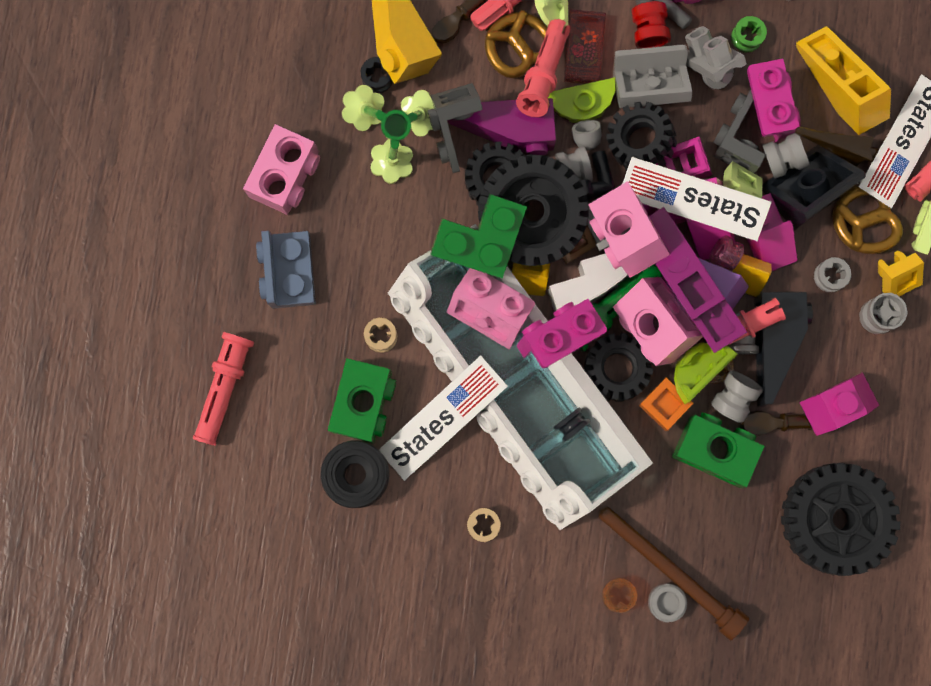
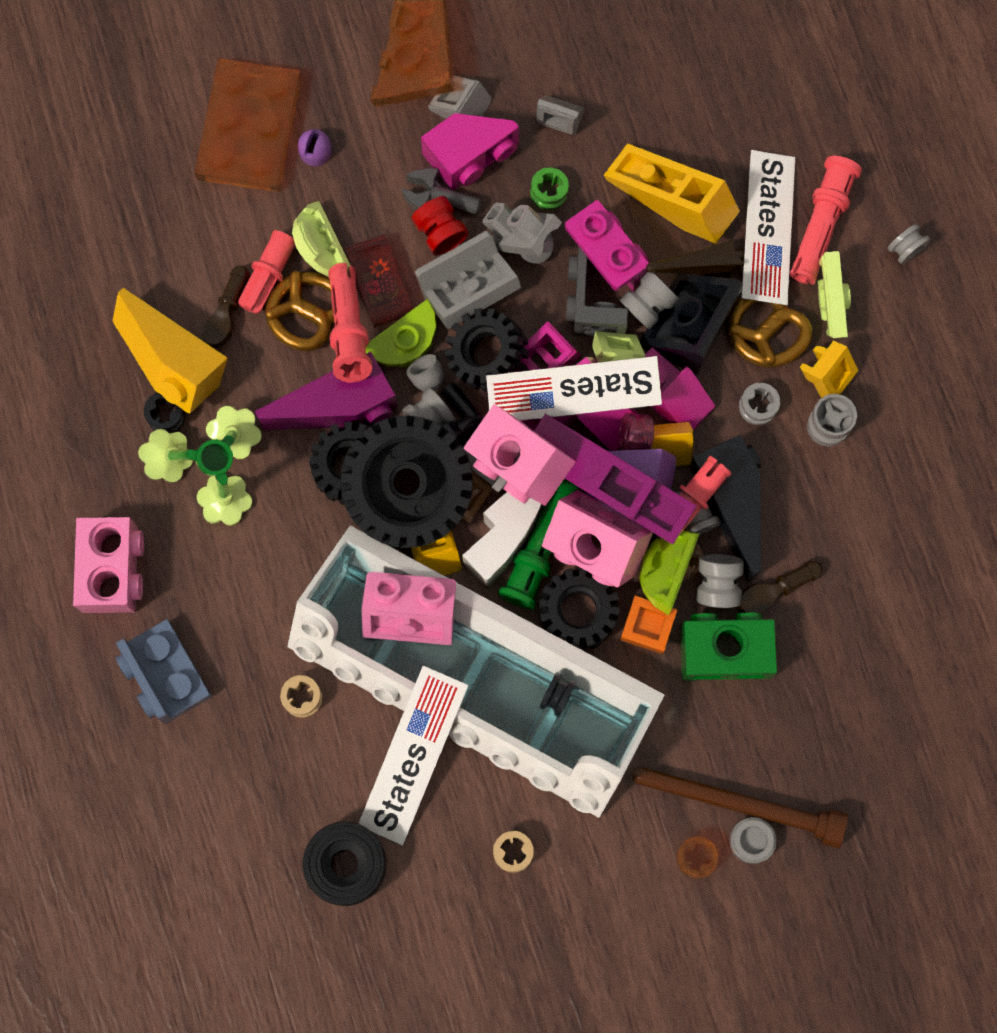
camera: 30 degrees left, 5 degrees down
(227, 370) = (147, 816): coral pin -> none
(358, 379) = (297, 757): green brick -> none
(452, 104) = (269, 405): dark grey bracket -> none
(484, 248) = (376, 543): green plate -> none
(562, 335) = (501, 601): dark pink bracket -> none
(839, 404) = (832, 538): dark pink slope -> none
(869, 515) = (925, 652): black wheel -> none

